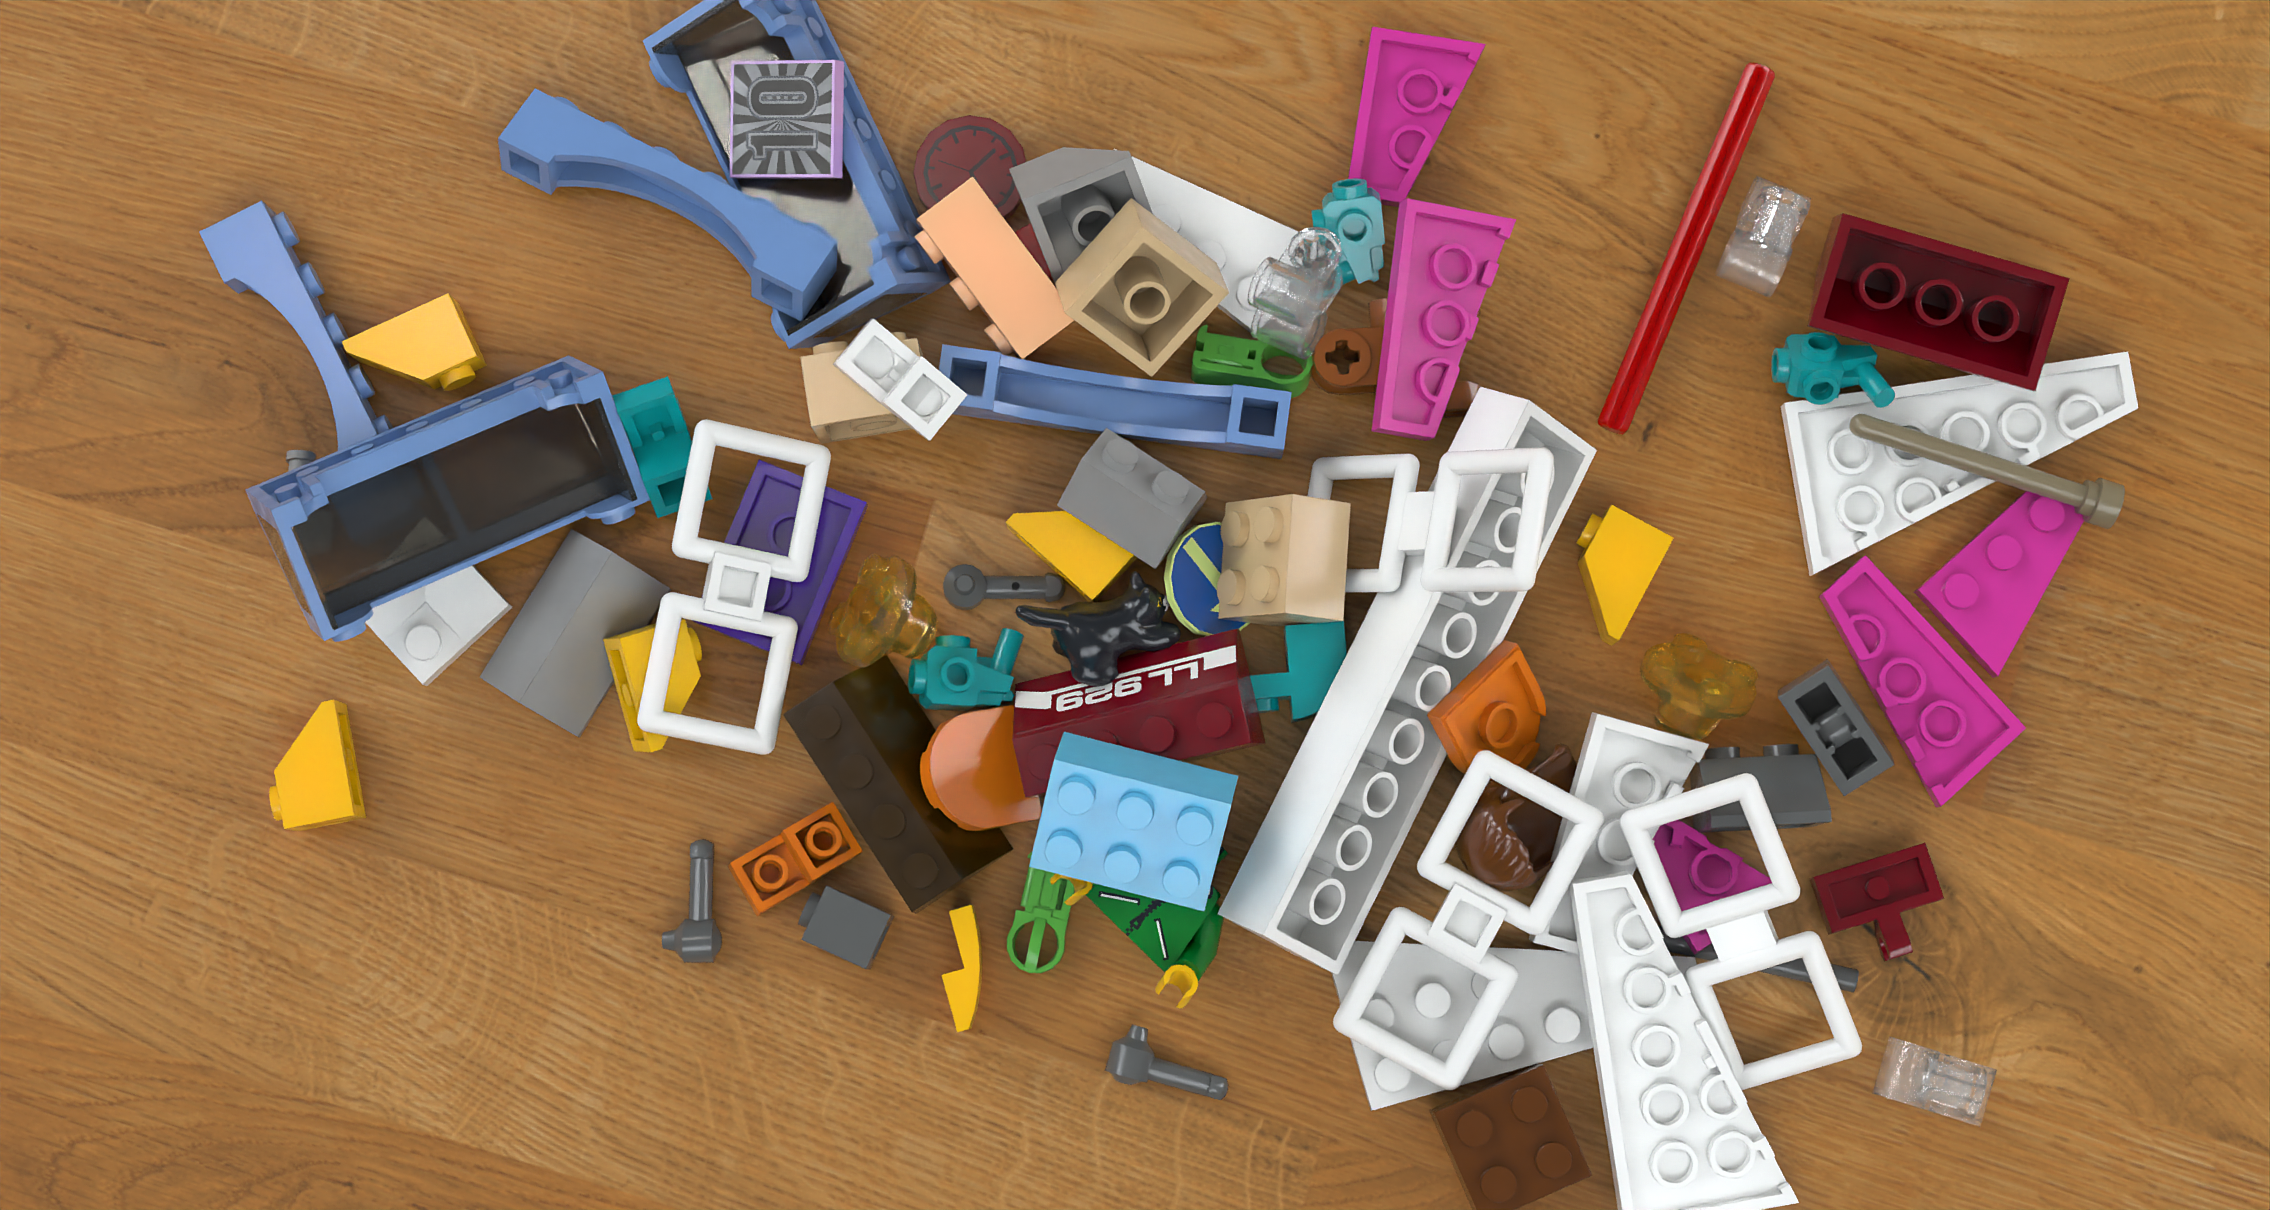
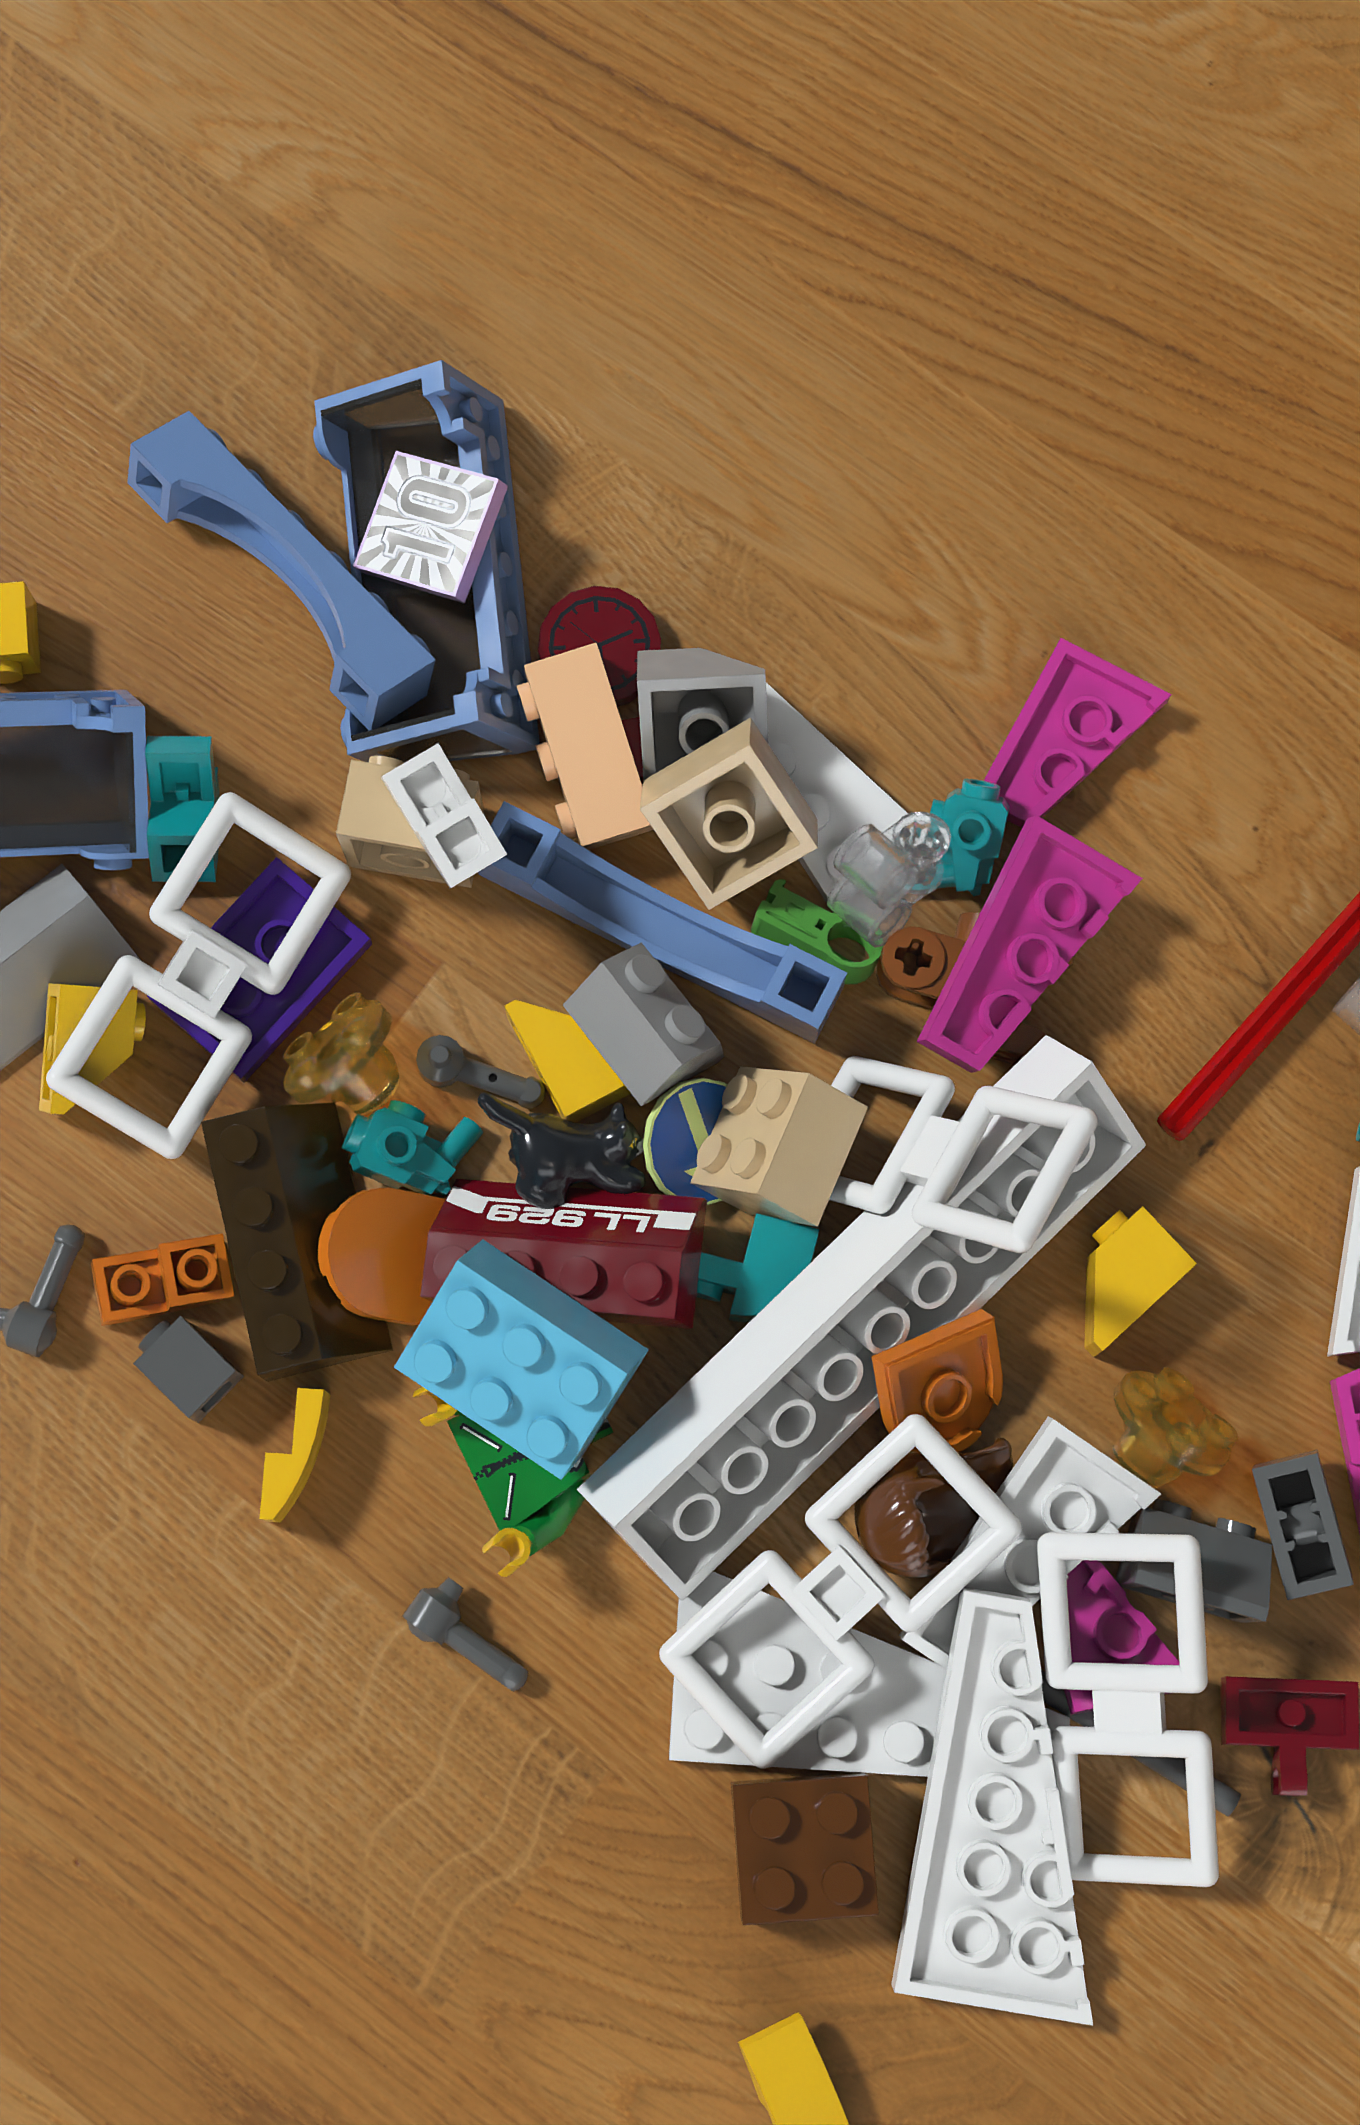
camera: 15 degrees right, 5 degrees down
(1044, 906) = (399, 1421): bright green piece -> none
(1934, 1081) = (1284, 1945): clear piece -> none

